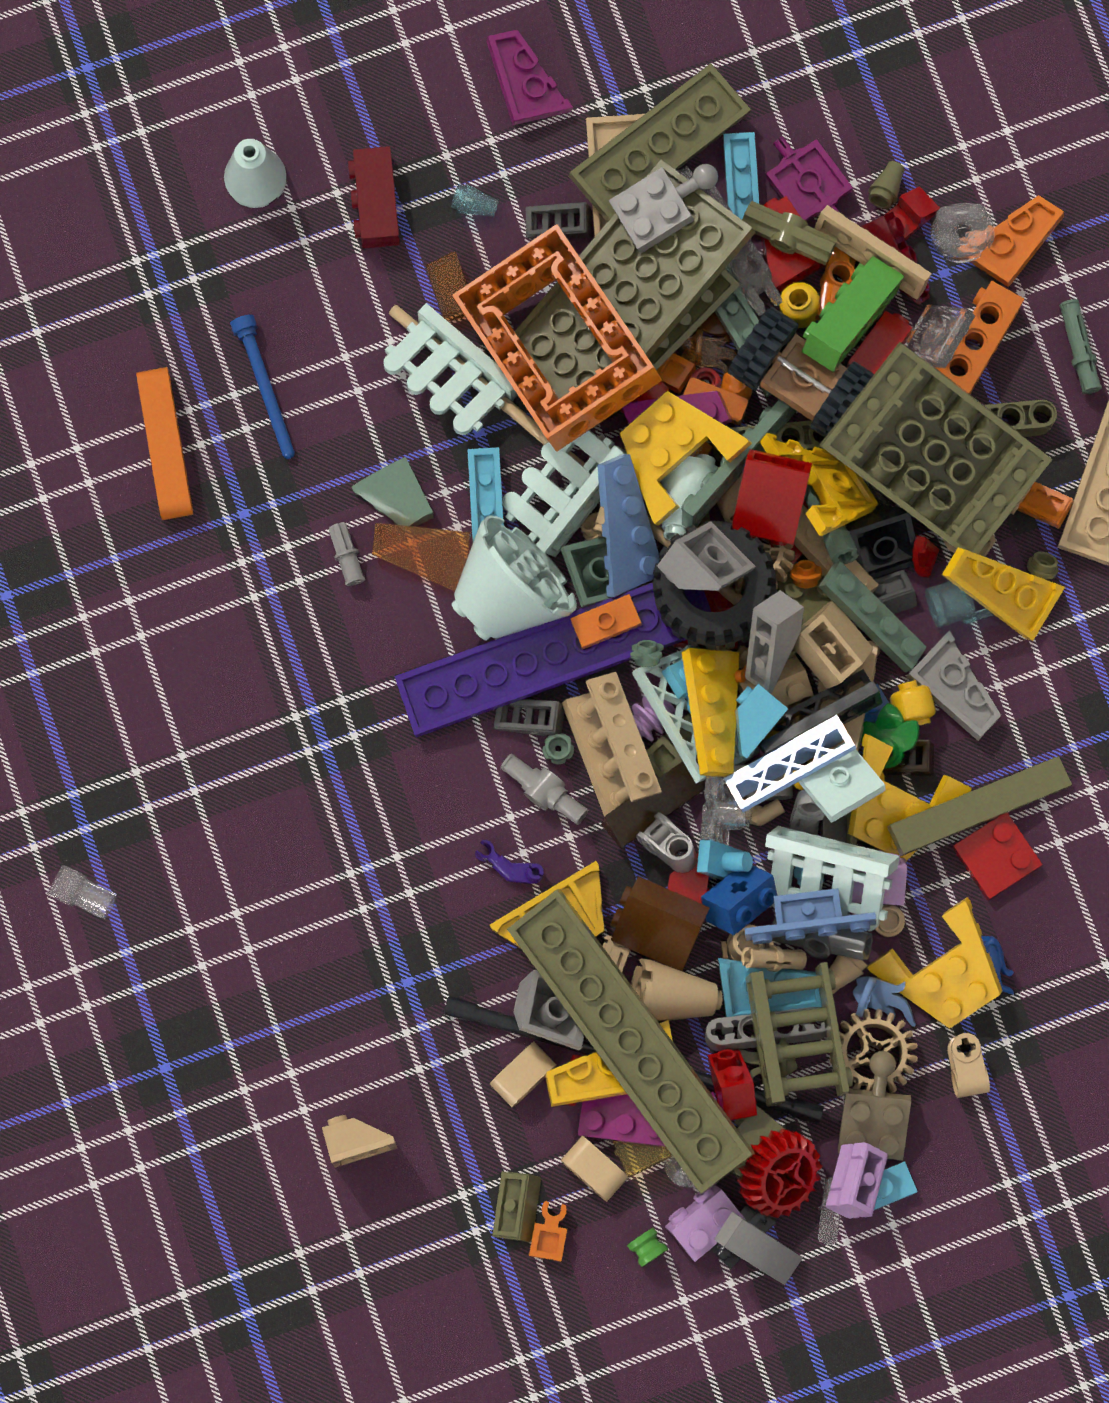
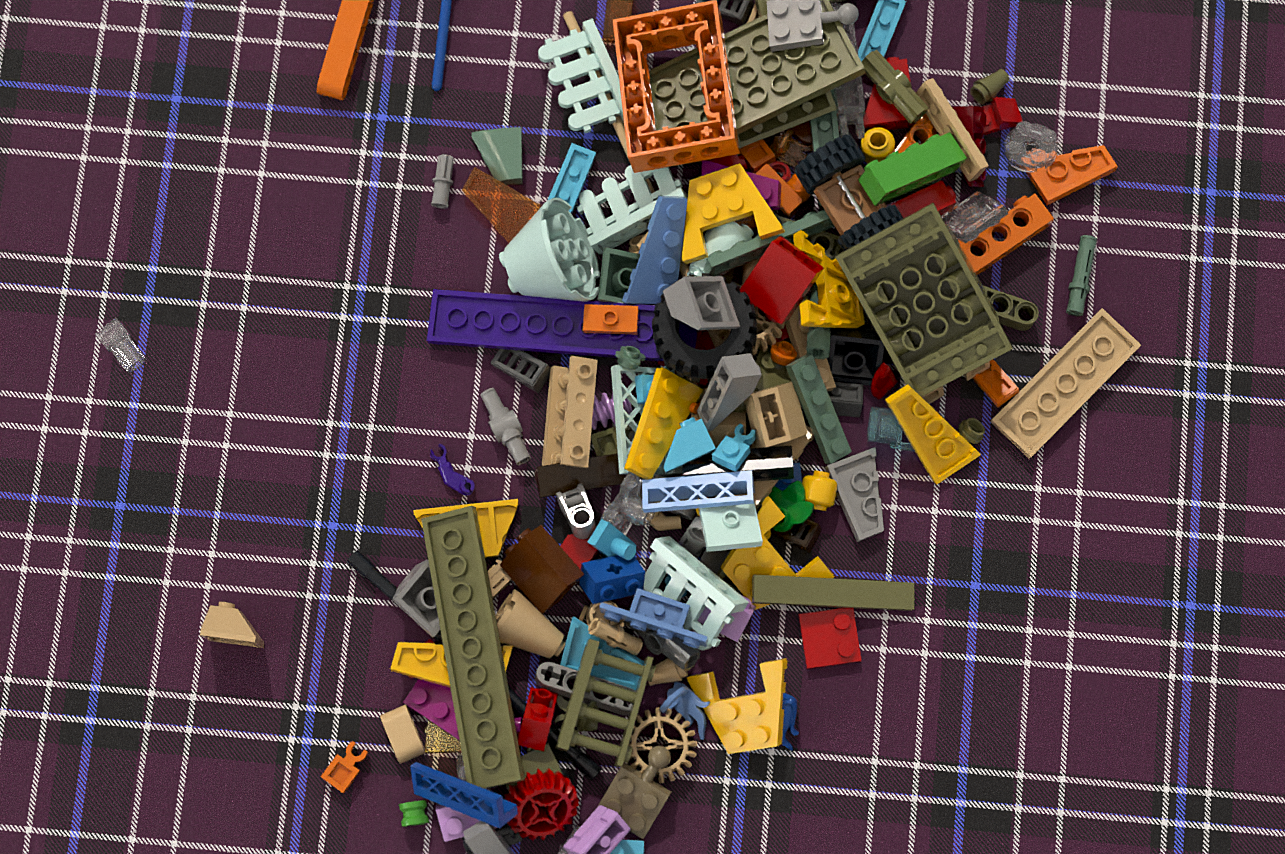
camera: 25 degrees right, 0 degrees up
(516, 1206) = (331, 735): olive slope -> none
(522, 1074) = (383, 636): tan beam -> none
(561, 740) = (527, 394): sand green plate -> none
(693, 1202) = (461, 796): none -> blue fence
(807, 703) = (734, 450): none -> medium azure plate
(808, 178) = (930, 54): magenta plate -> none
(893, 924) = (723, 651): tan plate -> none
(969, 1072) = (727, 795): tan piece -> none

